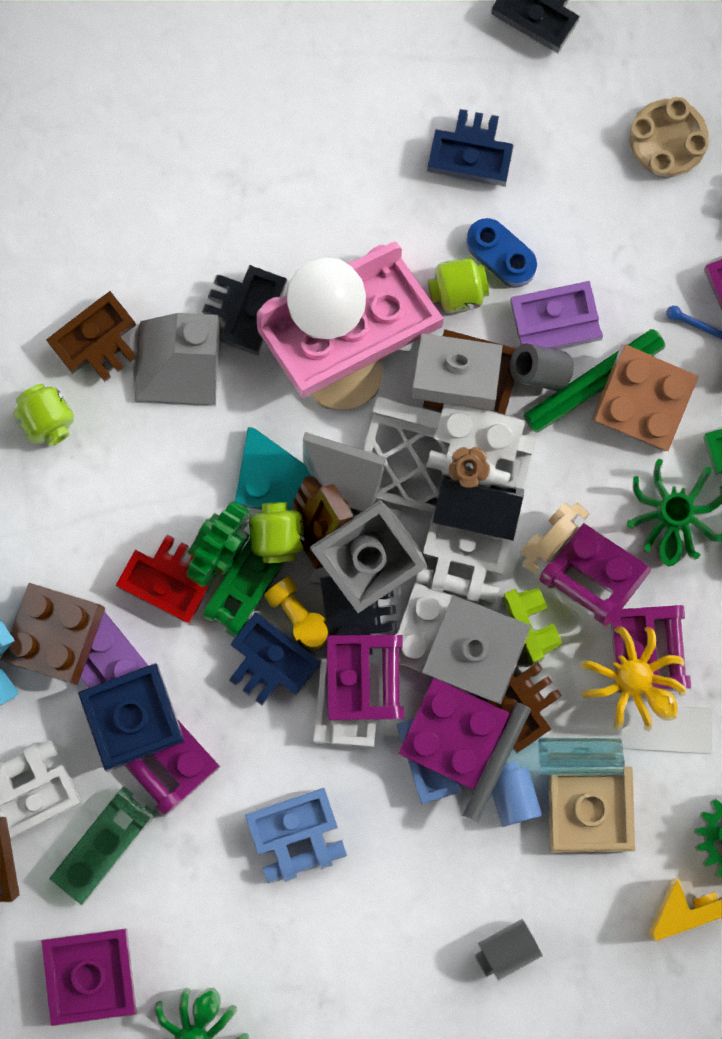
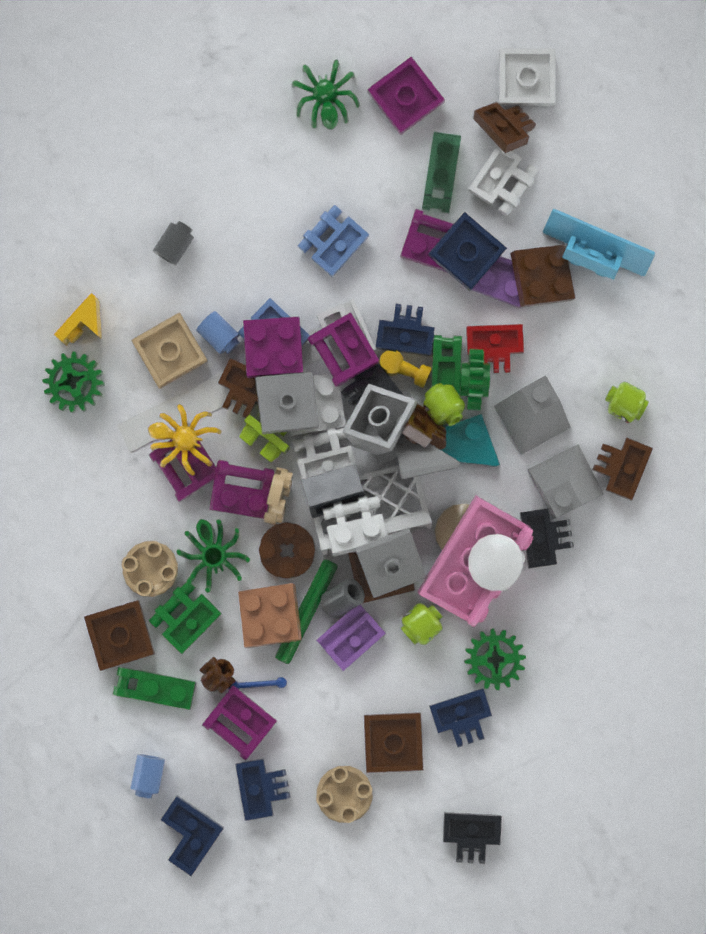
camera: 155 degrees right, 5 degrees up
(170, 466) = (533, 415): none -> light grey slope
(380, 185) = (507, 658): none -> green gear
(477, 459) = (353, 512): medium nougat plate -> none
(496, 762) = (238, 343): dark grey bar -> none
(499, 252) = (407, 662): blue plate -> none
(574, 164) = (393, 742): none -> reddish brown plate
(581, 756) = (191, 373): clear light blue tile -> none
(588, 448) = (303, 550): none -> reddish brown plate

